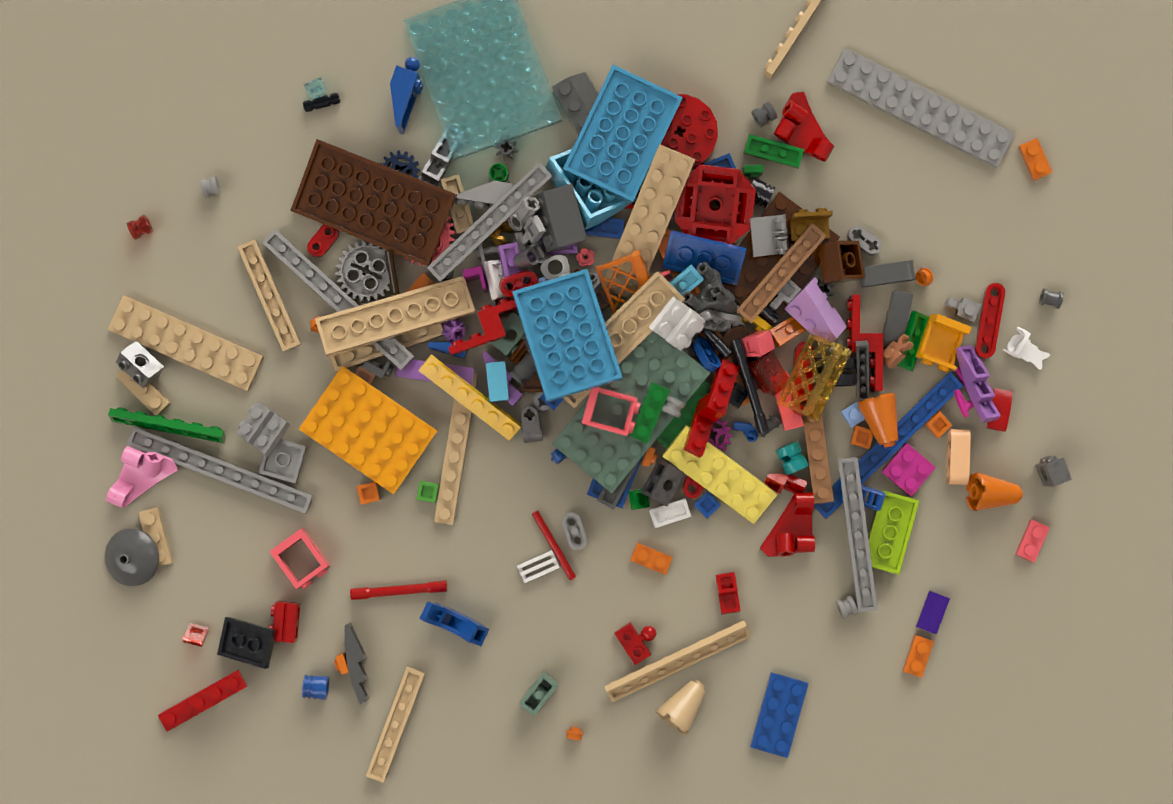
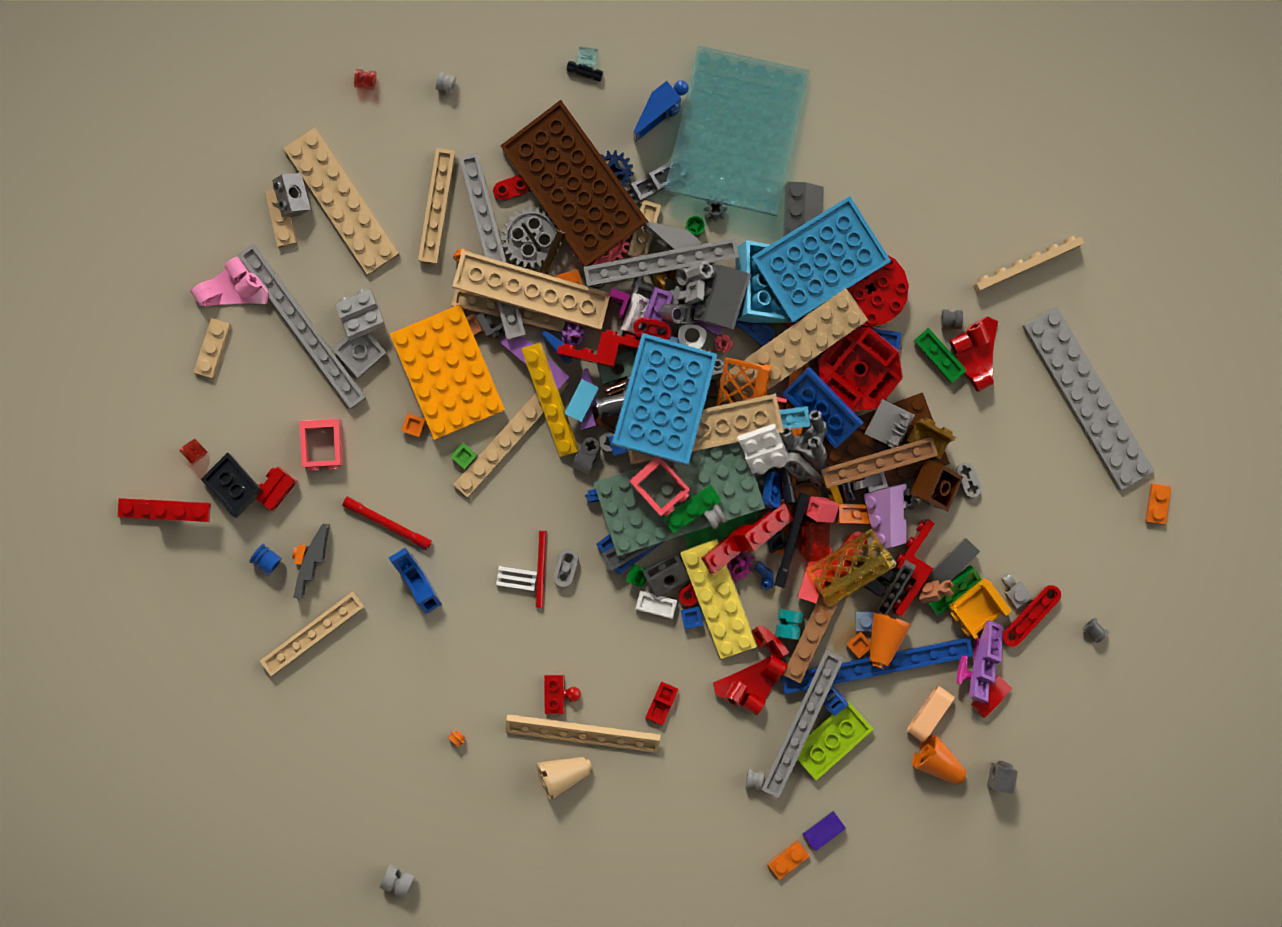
camera: 30 degrees right, 0 degrees up
(140, 553) = (190, 355): dark grey dish -> none
(162, 424) = (277, 255): green plate -> none
(538, 693) = (448, 685): sand green brick -> none
(649, 457) = (669, 546): orange plate -> none
(651, 558) = (615, 632): orange plate -> none
(752, 171) = (911, 361): green plate -> none
(763, 192) = (907, 384): black piece -> none
(773, 422) = (792, 584): dark grey pin -> none
(779, 714) = (639, 833): blue plate -> none
(888, 273) = (970, 521): dark grey beam -> none
(908, 469) = (881, 697): dark pink plate -> none
(924, 277) = (999, 543): orange plate -> none
(938, 424) = (930, 675): orange plate -> none
(1021, 348) = (1043, 655): white hair -> none
(1032, 540) = (947, 824): coral plate -> none

